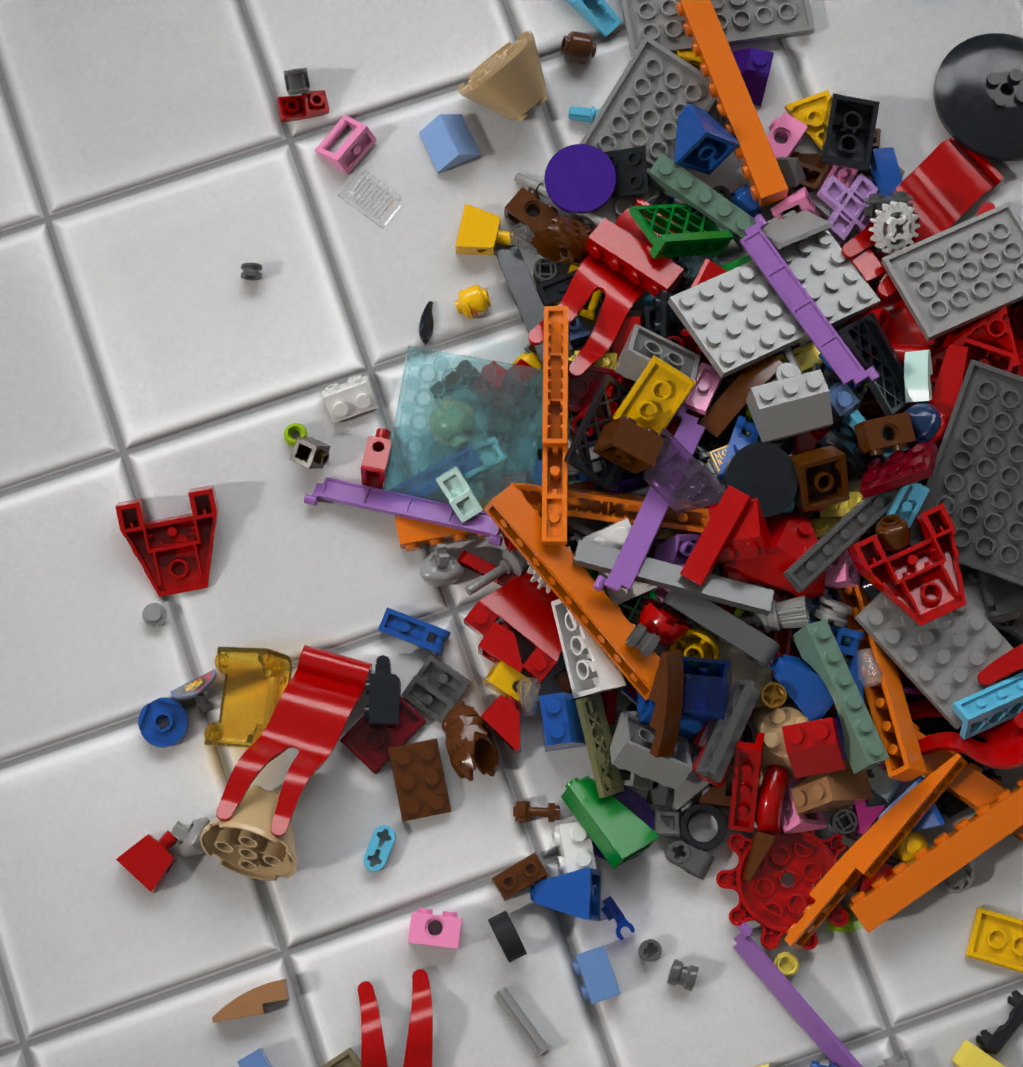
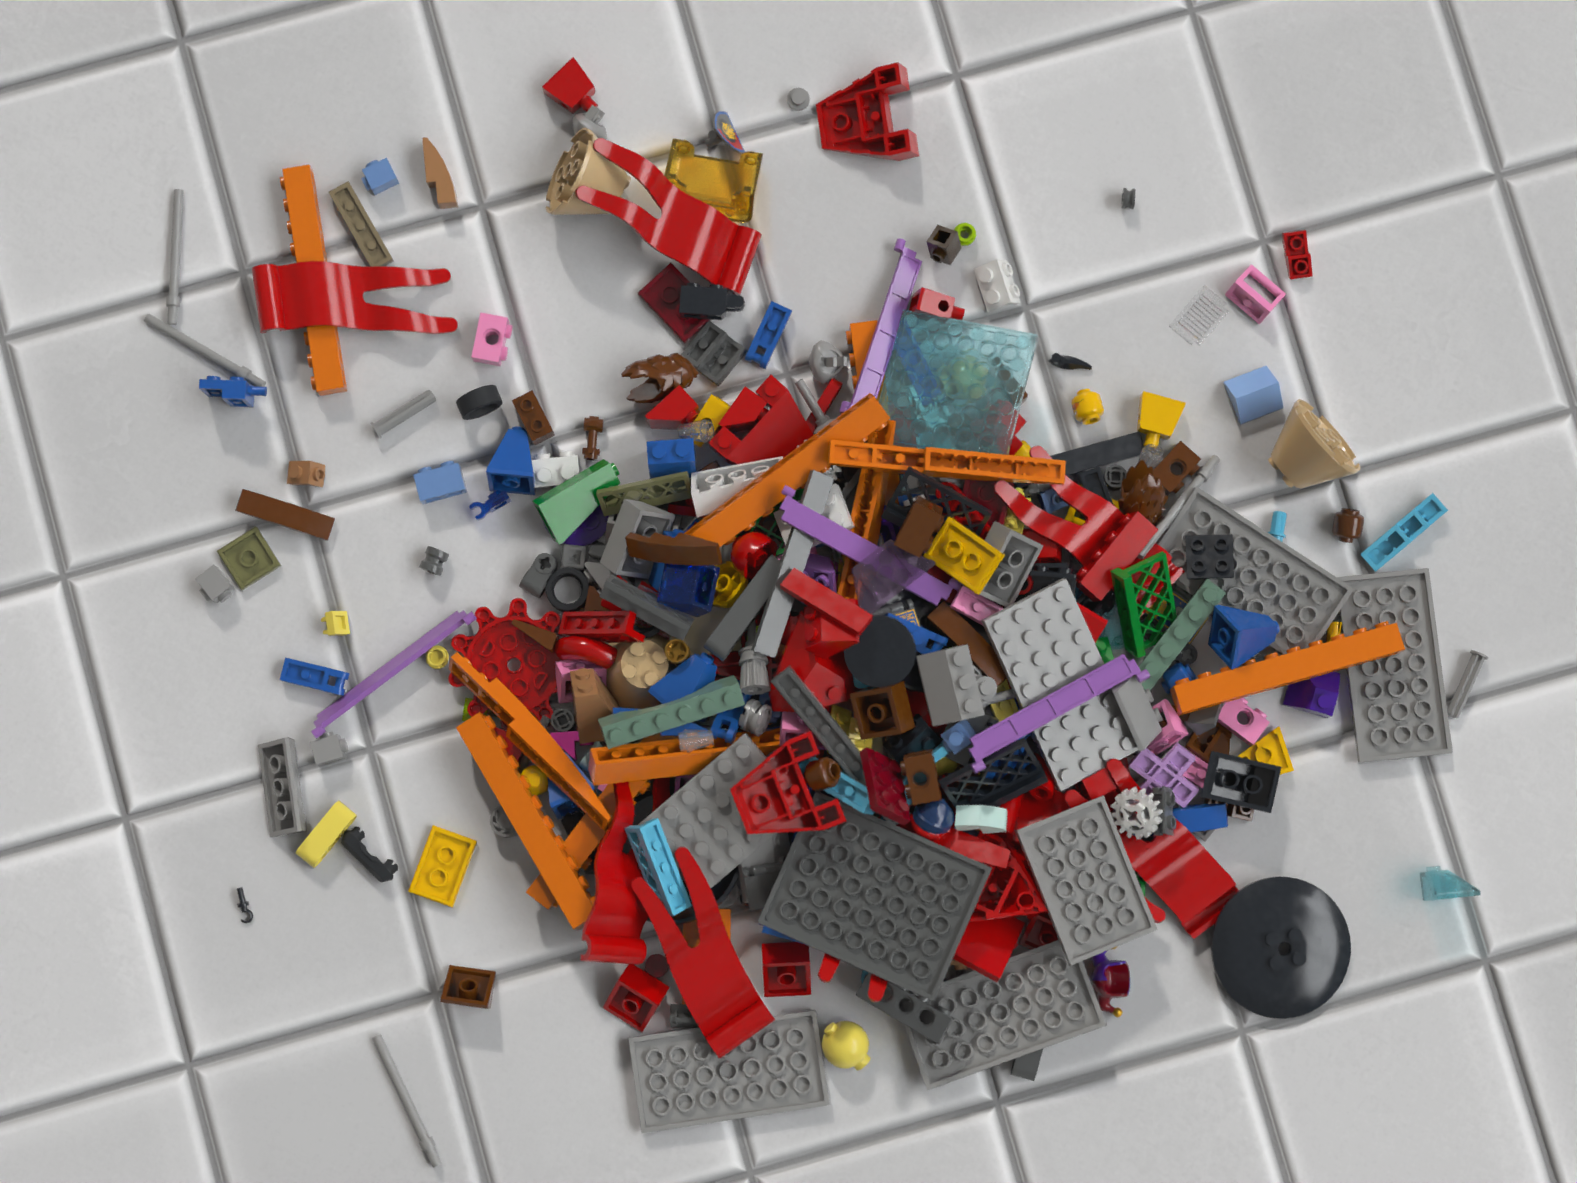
camera: 95 degrees right, 5 degrees up
(157, 710) = (686, 111): blue plate -> none
(297, 81) = (1320, 248): dark grey piece -> none
(374, 845) = (571, 289): medium azure beam -> none
(419, 780) = (629, 332): reddish brown plate -> none
(459, 494) = (891, 378): light aqua slope -> none
(580, 179) = (1203, 512): dark purple tile -> none
(642, 640) = (733, 530): dark grey wheel -> none
(656, 956) = (464, 529): dark grey bush -> none
(814, 747) = (625, 683): red slope -> none

